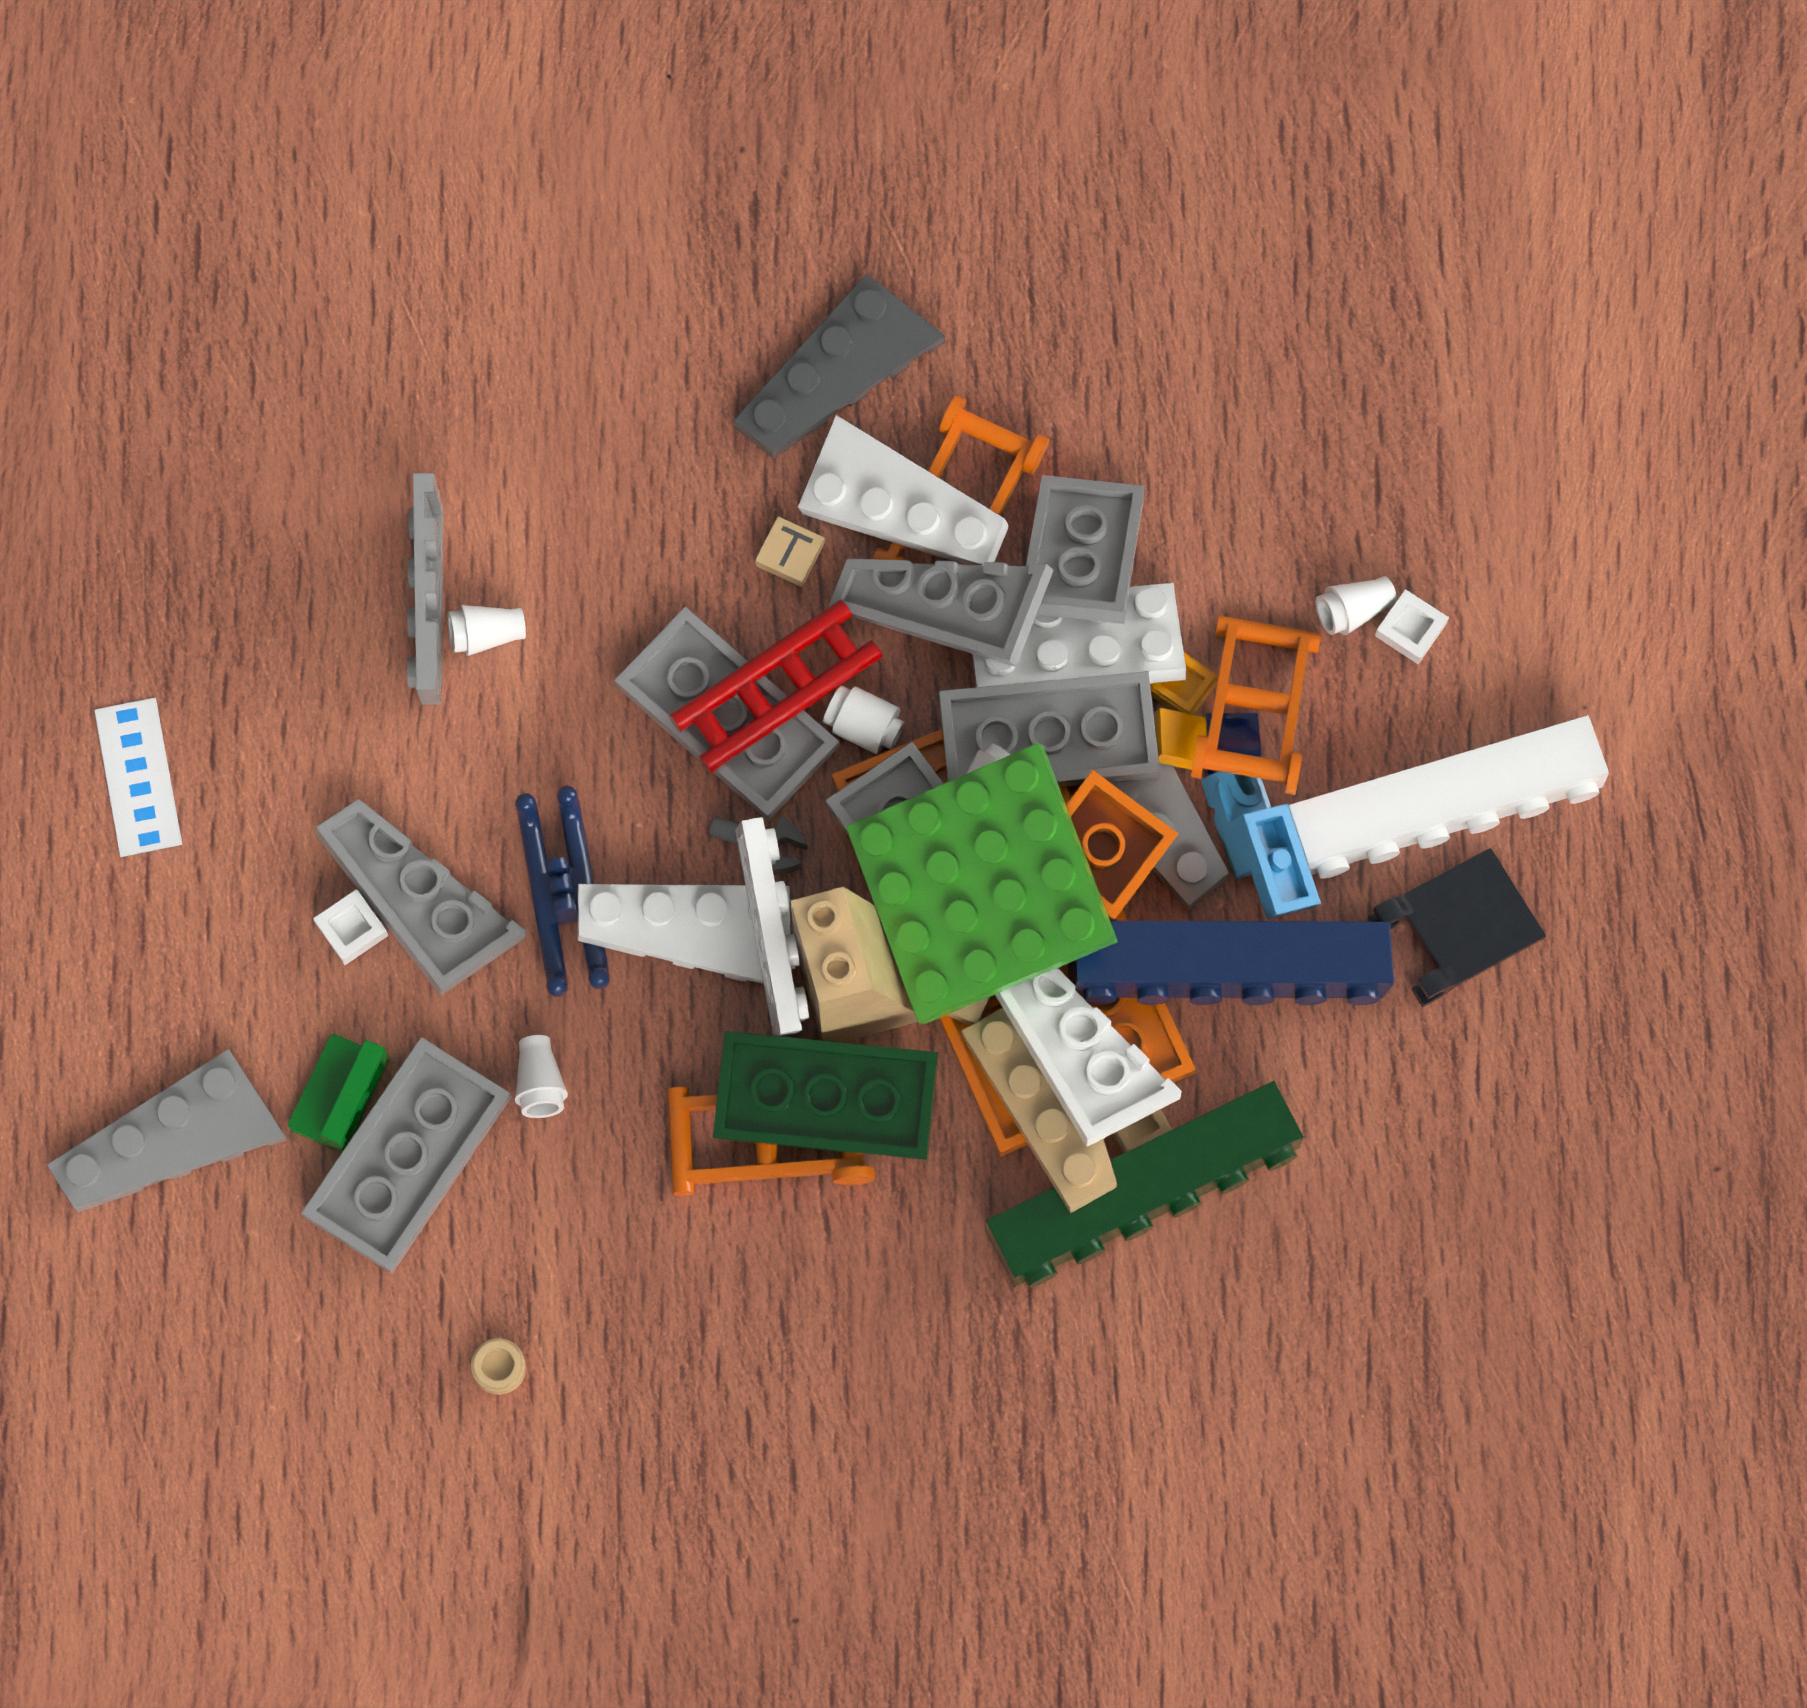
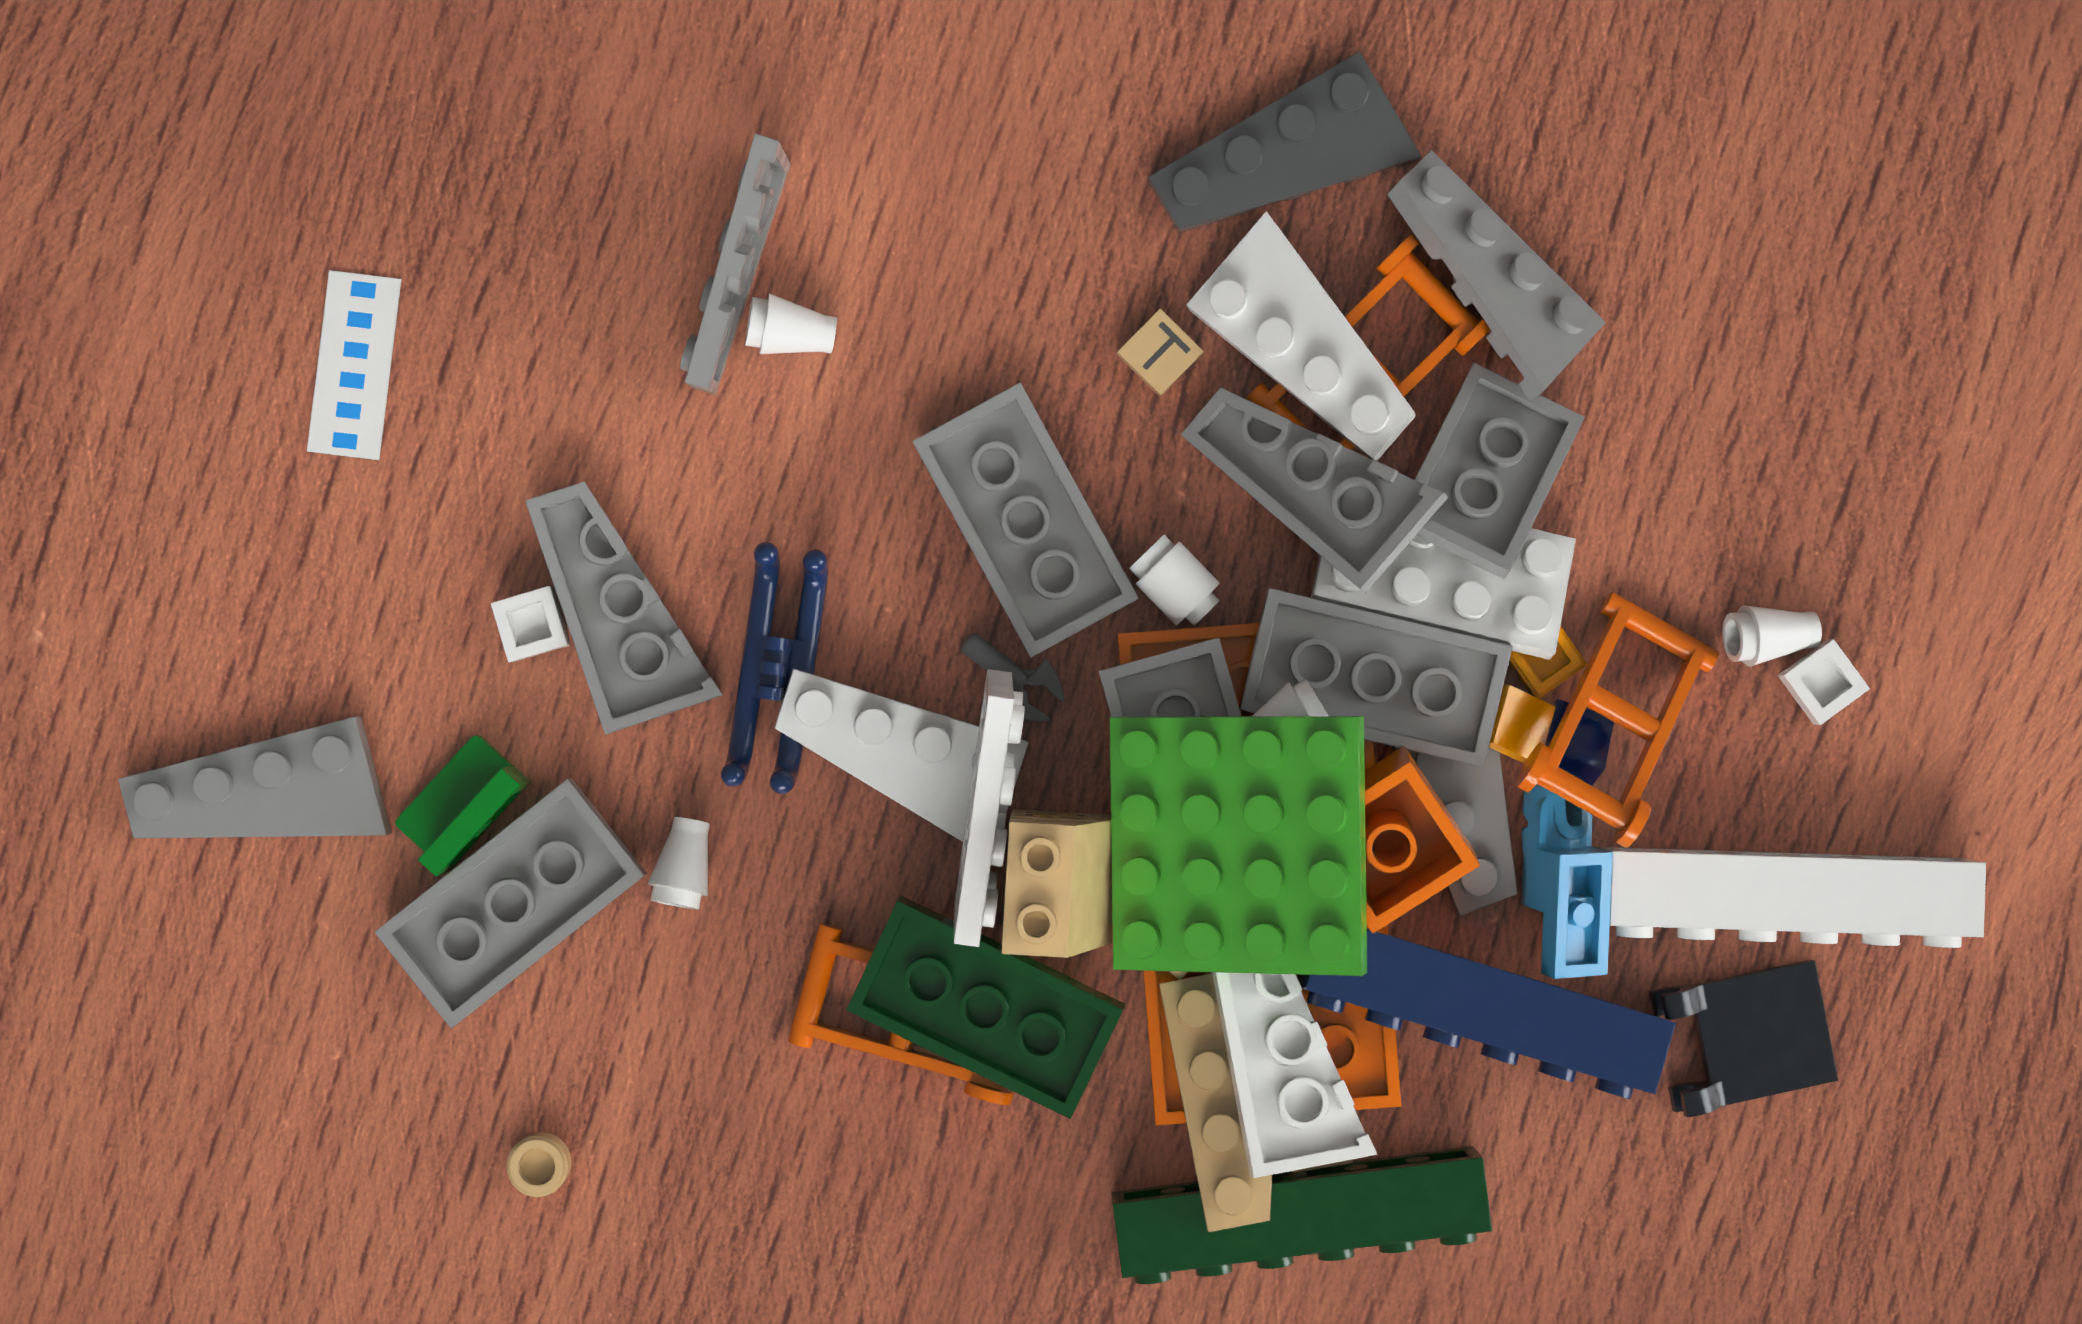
camera: 15 degrees right, 15 degrees up
(782, 654) = (1053, 498): red bar -> none
(1049, 406) = (1517, 294): none -> light grey wing

